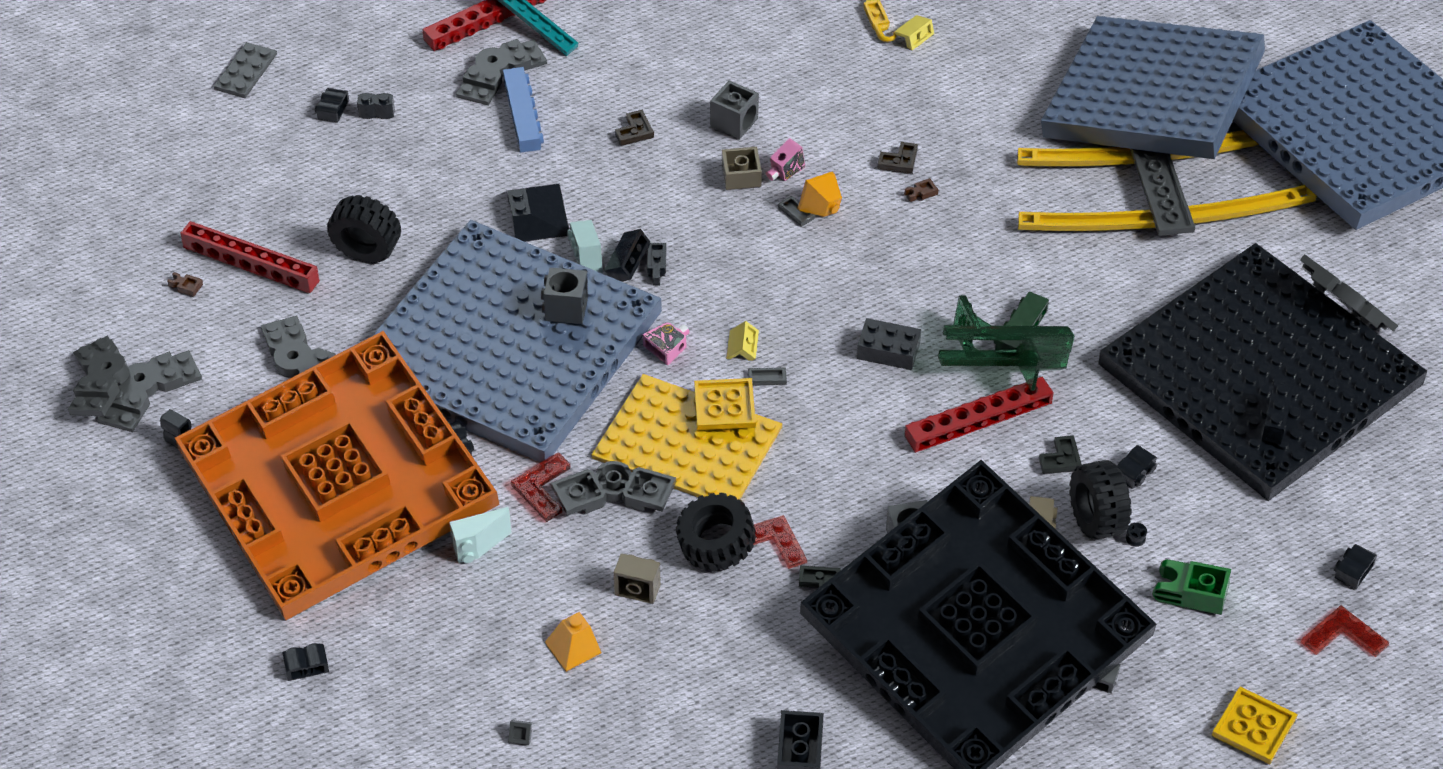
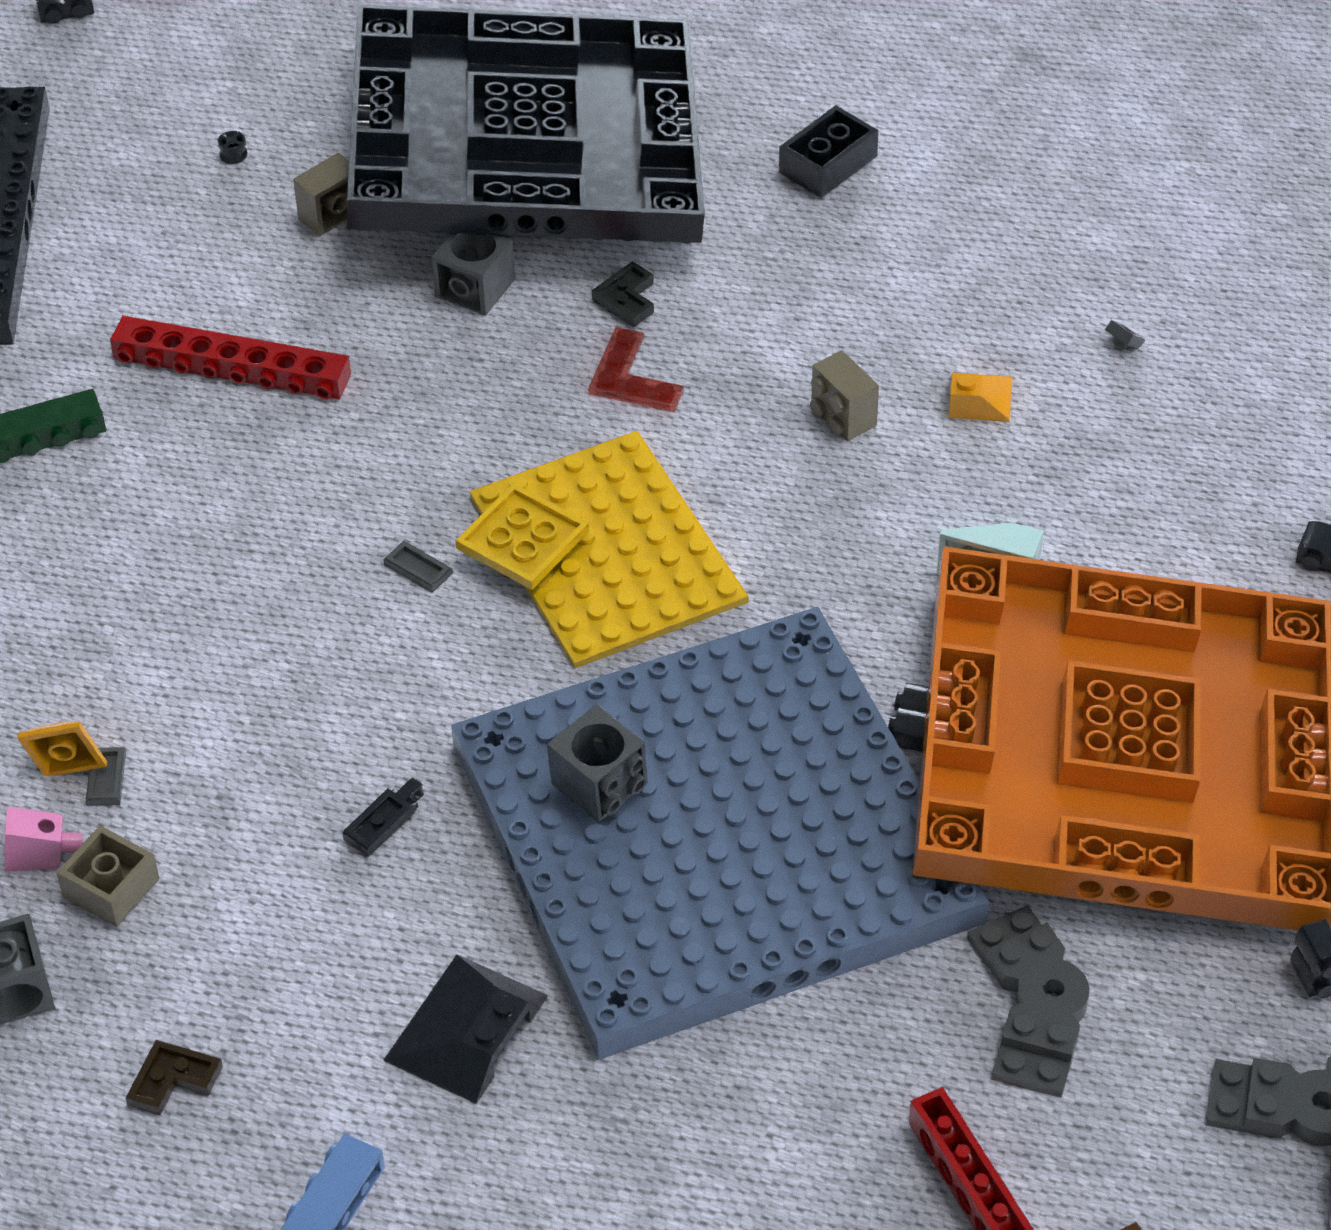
camera: 140 degrees left, 0 degrees up
(364, 229) = (790, 1099): black tyre -> none
(530, 485) = (864, 606): clear red plate -> none
(585, 244) = (460, 897): light aqua wedge -> none
(613, 483) = (755, 540): dark grey plate -> none
(627, 255) = (422, 840): black brick -> none
(666, 341) = (497, 680): torso -> none
(718, 552) = (704, 358): black tyre -> none
(743, 341) = (402, 626): light yellow panel -> none
(888, 344) = (228, 498): black brick -> none
(1039, 348) = (105, 366): clear green piece -> none
(1064, 459) = (199, 259): pearl dark grey plate -> none
(1100, 499) = (244, 154): black tyre -> none
(1137, 465) = (139, 206): black brick -> none
(1193, 585) = (245, 62): green brick -> none

